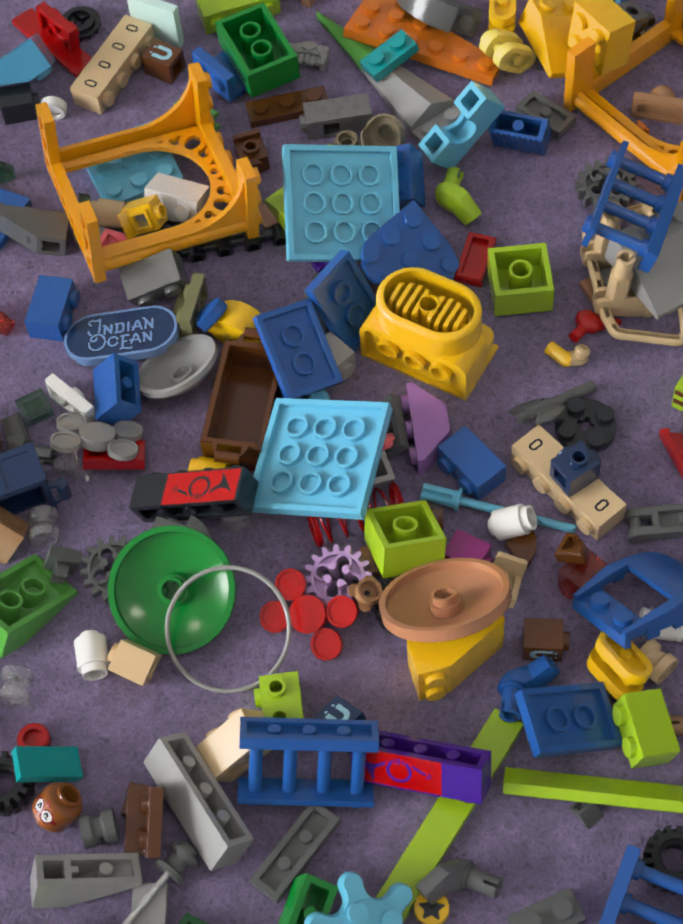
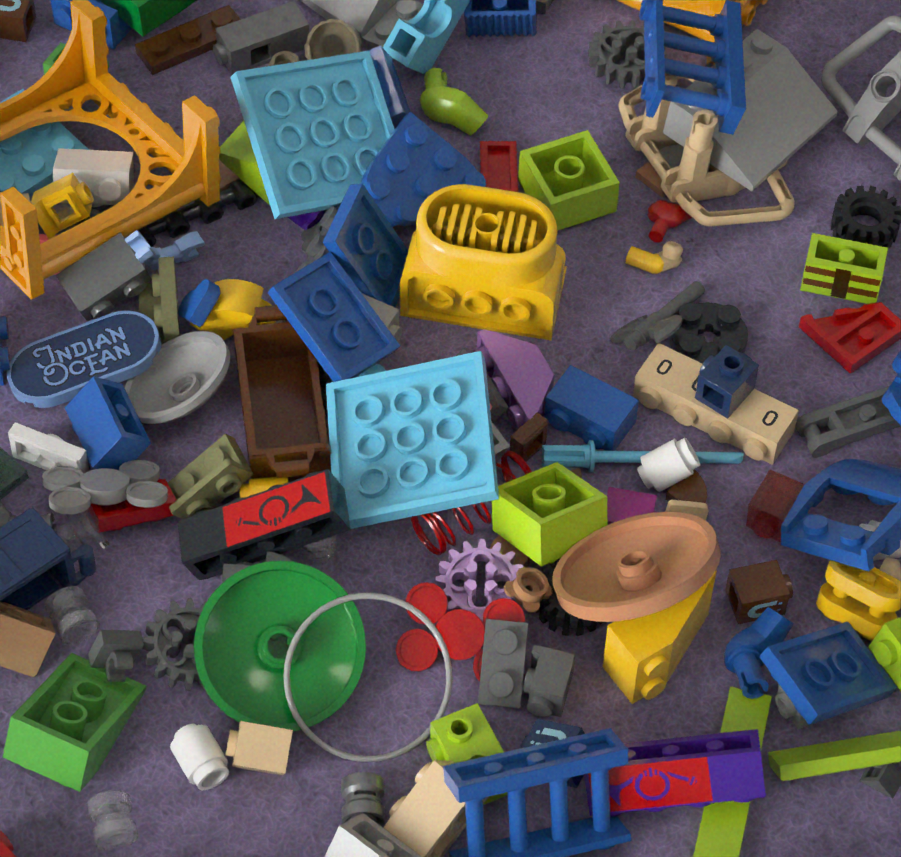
camera: 25 degrees left, 5 degrees down
(172, 449) = (209, 478): none -> olive bracket
(193, 720) = (363, 795): none -> flat silver wheel
(219, 268) = (182, 249): none -> light blue piece
(250, 145) = (165, 98): reddish brown brick -> none
(330, 644) = (503, 663): none -> dark grey plate
(360, 667) = (548, 681): none -> dark grey brick
(416, 475) = (529, 437): none -> reddish brown tile
(571, 550) = (756, 477): reddish brown tile -> none

